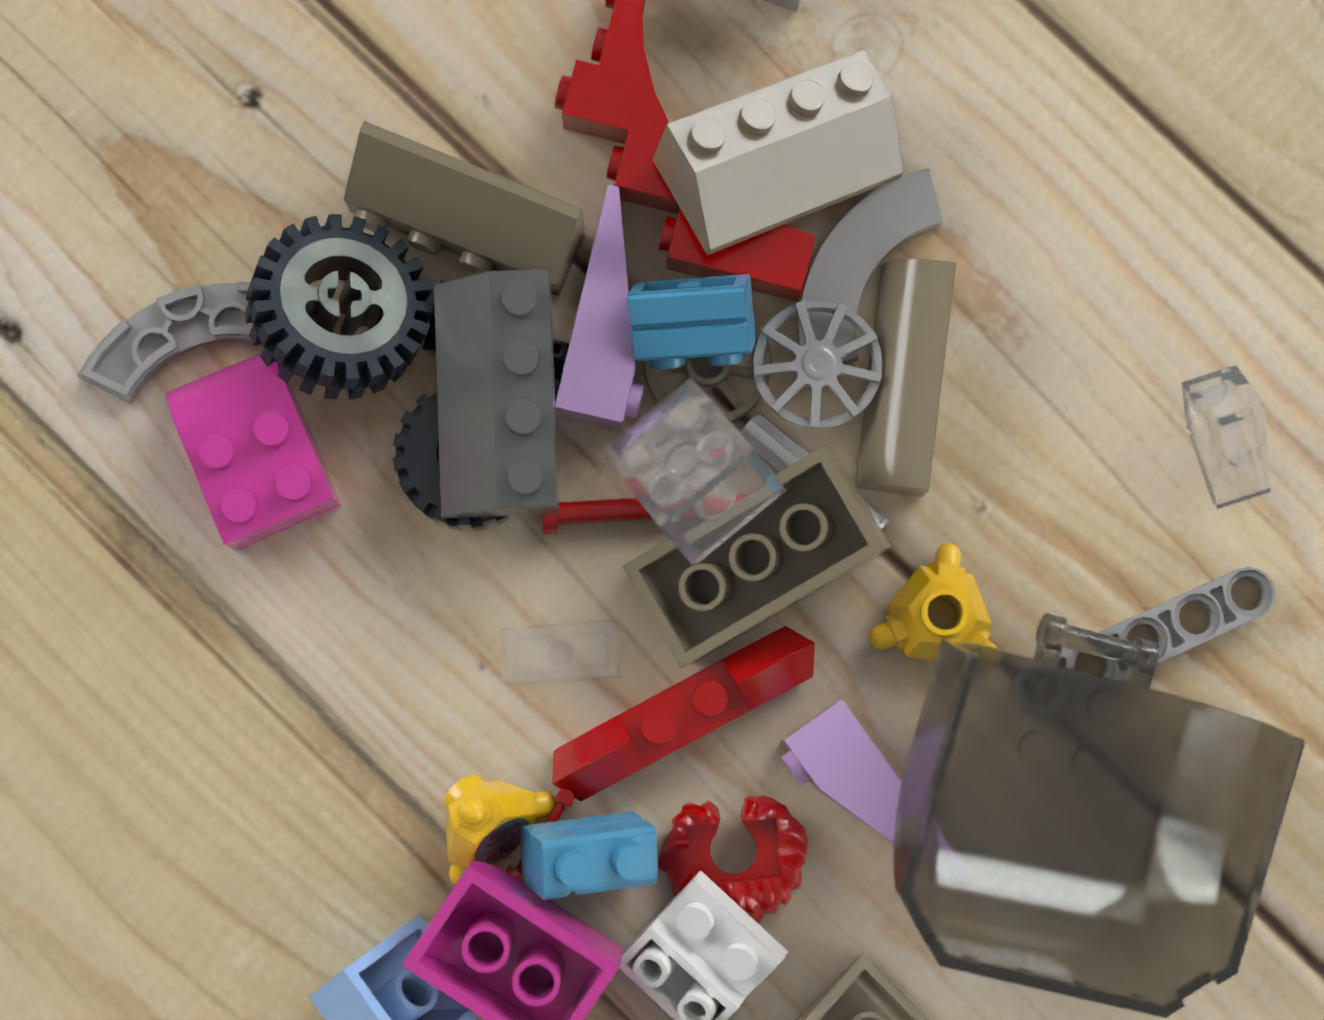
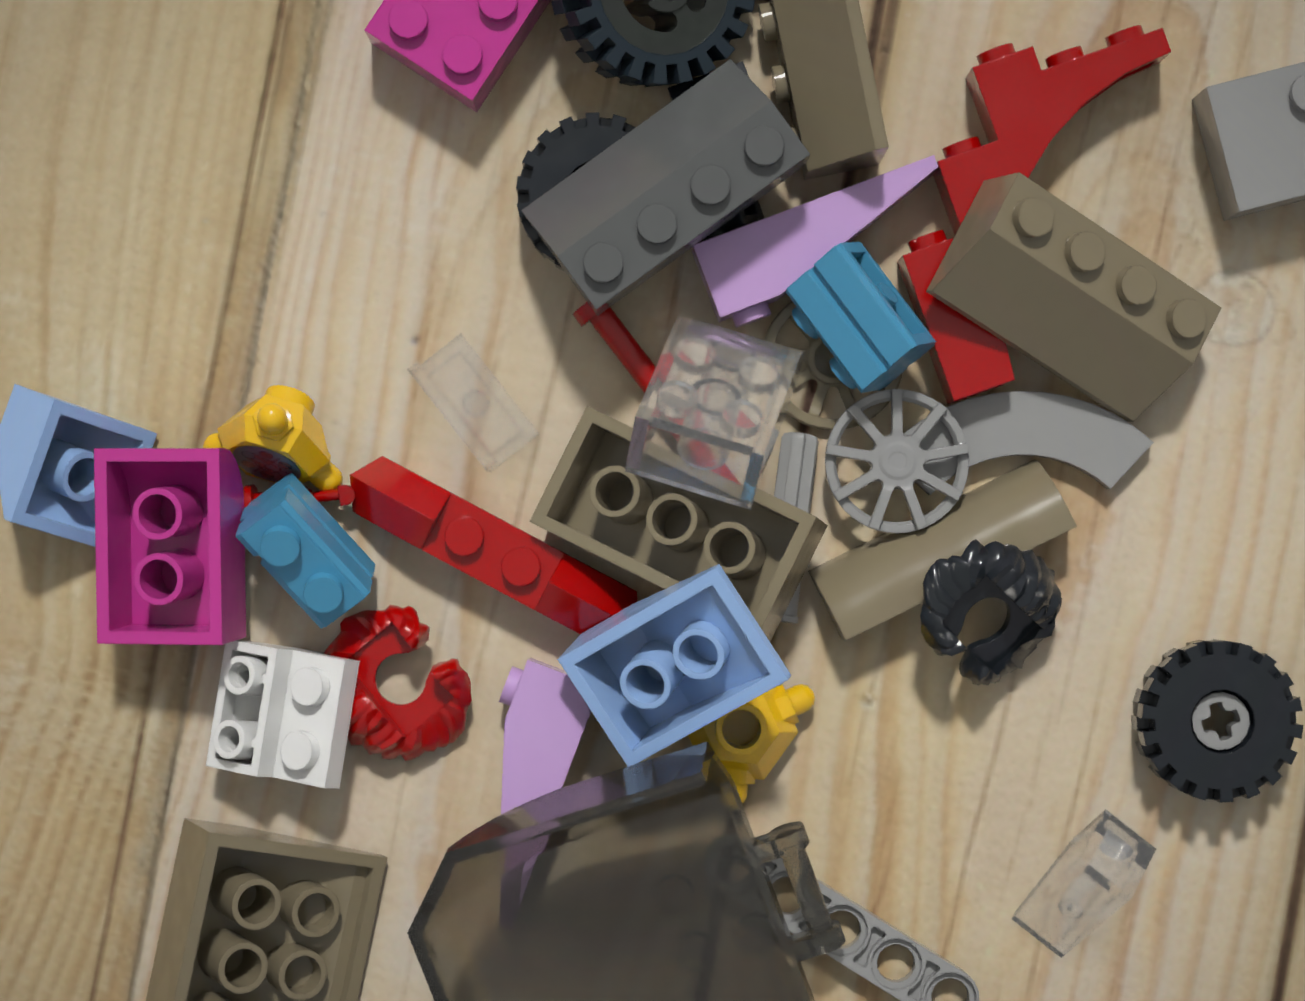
camera: 60 degrees right, 5 degrees up
(863, 628) = (672, 664): none -> light blue slope
(945, 353) = (984, 573): none -> black piece
(1134, 274) = (1179, 699): none -> black bush

